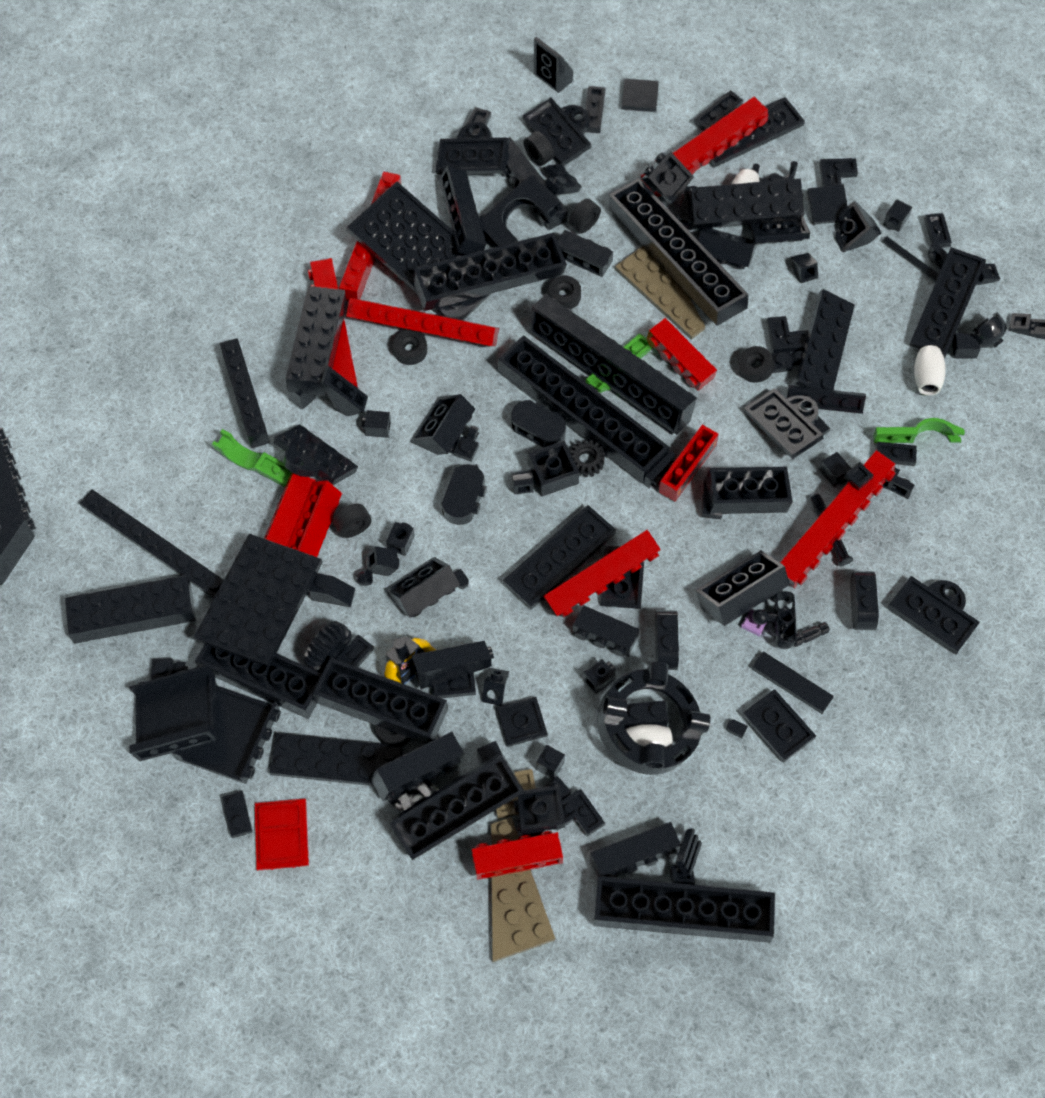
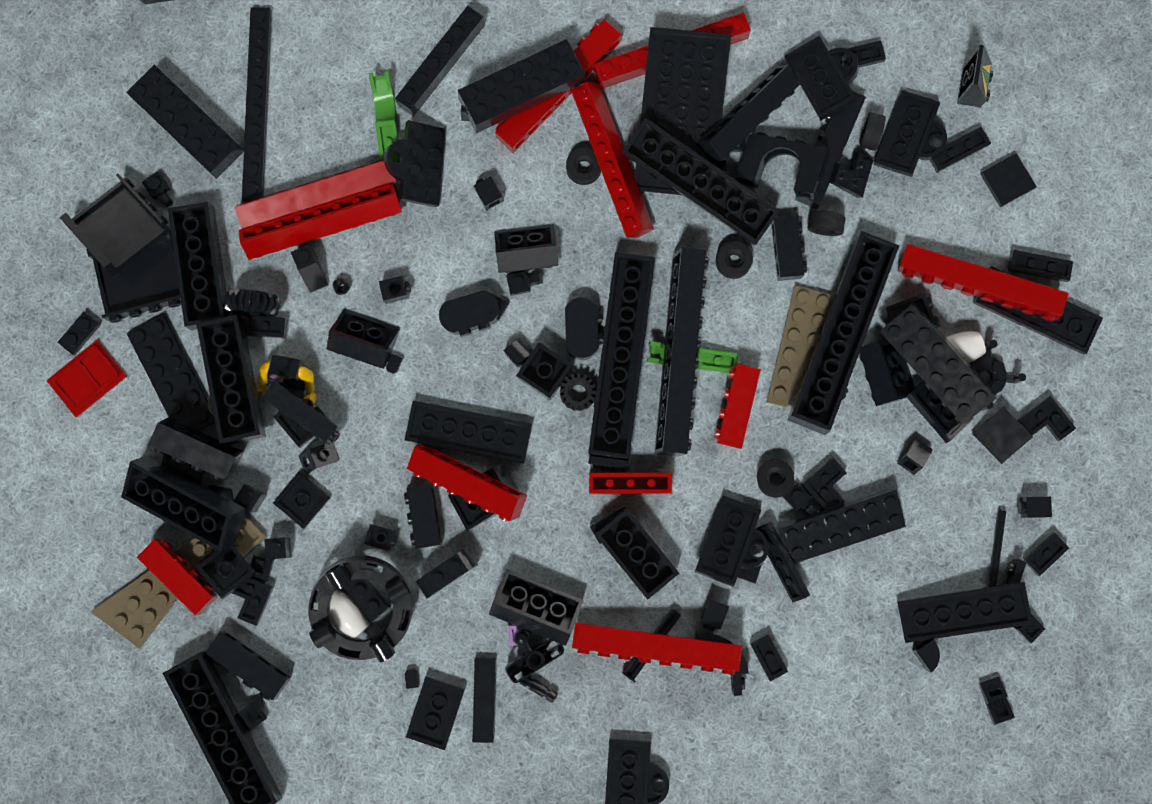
camera: 60 degrees right, 20 degrees up
(258, 600) = (249, 219): black plate -> none
(343, 394) = (488, 145): black slope -> none
(352, 520) = (380, 239): black tyre -> none
(382, 561) = (361, 291): black brick -> none
(667, 176) = (918, 271): black plate -> none
(688, 852) = (272, 709): black tile -> none
(855, 228) = (992, 477): black slope -> none
(859, 476) = (704, 646): black tile -> none
(864, 600) = (596, 717): black brick -> none
(908, 434) = (825, 695): bright green piece -> none
(929, 370) = (876, 638): white piece -> none
(990, 331) = (959, 667): black cylinder -> none

